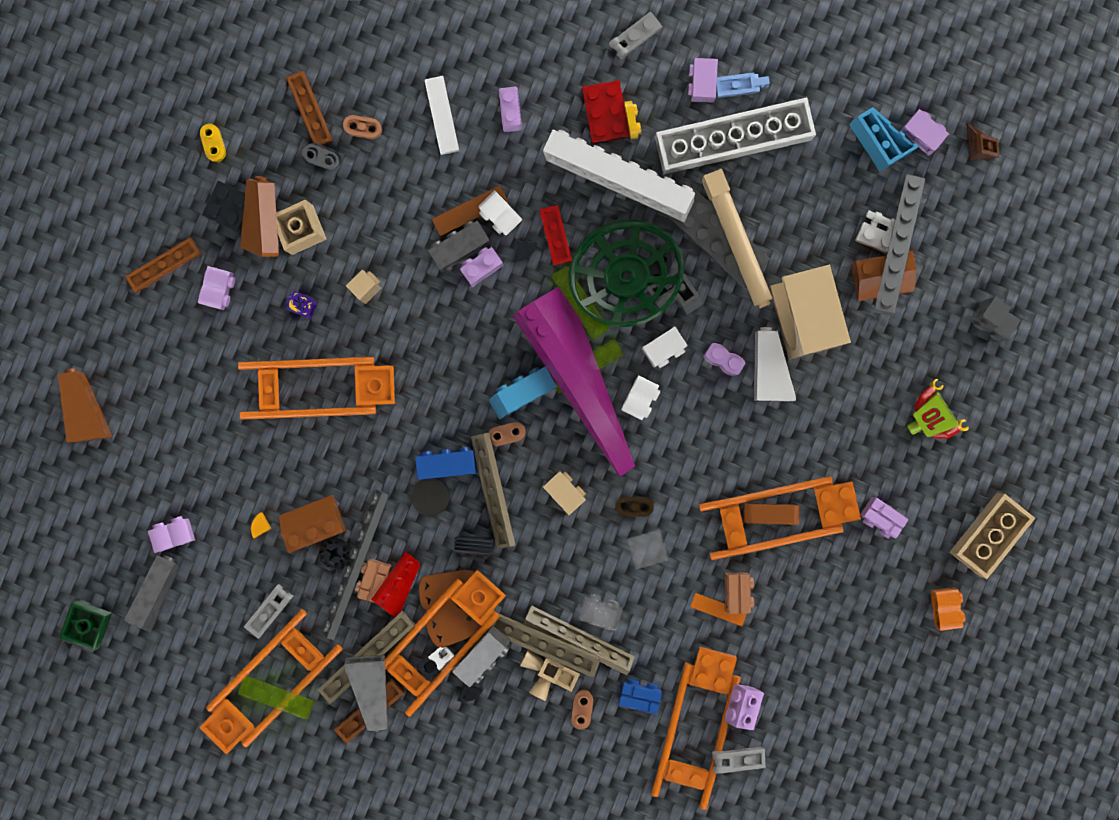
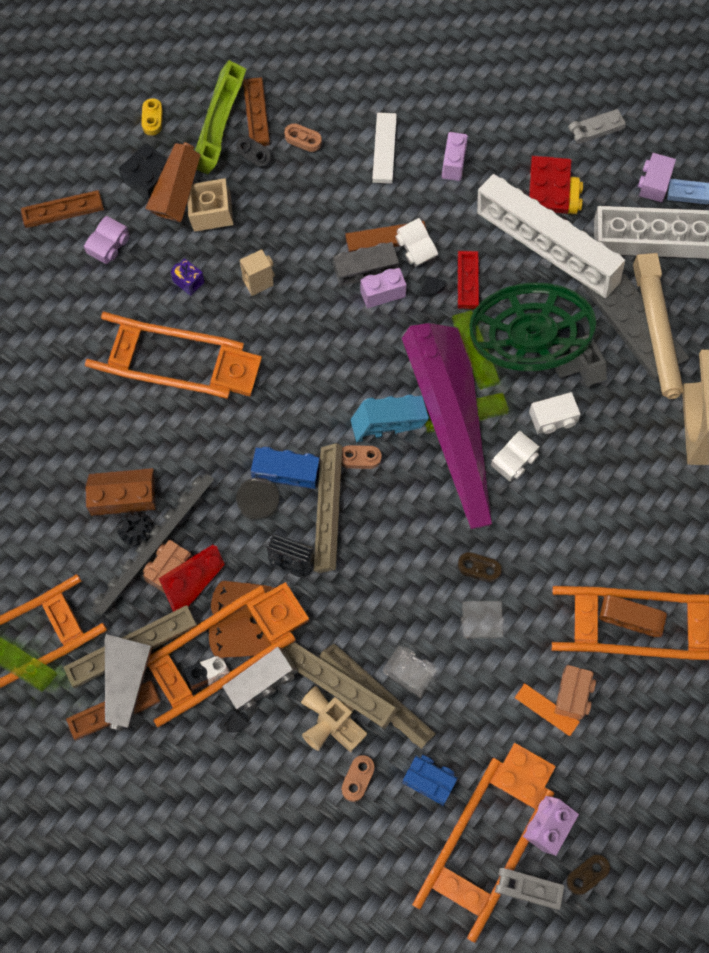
camera: 15 degrees right, 20 degrees down
(259, 525) = (64, 478): light orange tile -> none
(268, 612) = (41, 568): light grey plate -> none
(274, 103) = (222, 100): none -> lime arch
(564, 492) = (406, 530): tan brick -> none
(728, 362) = (618, 442): lavender brick -> none
(771, 373) = (666, 466): white slope -> none
(783, 735) = (587, 875): none -> dark brown plate

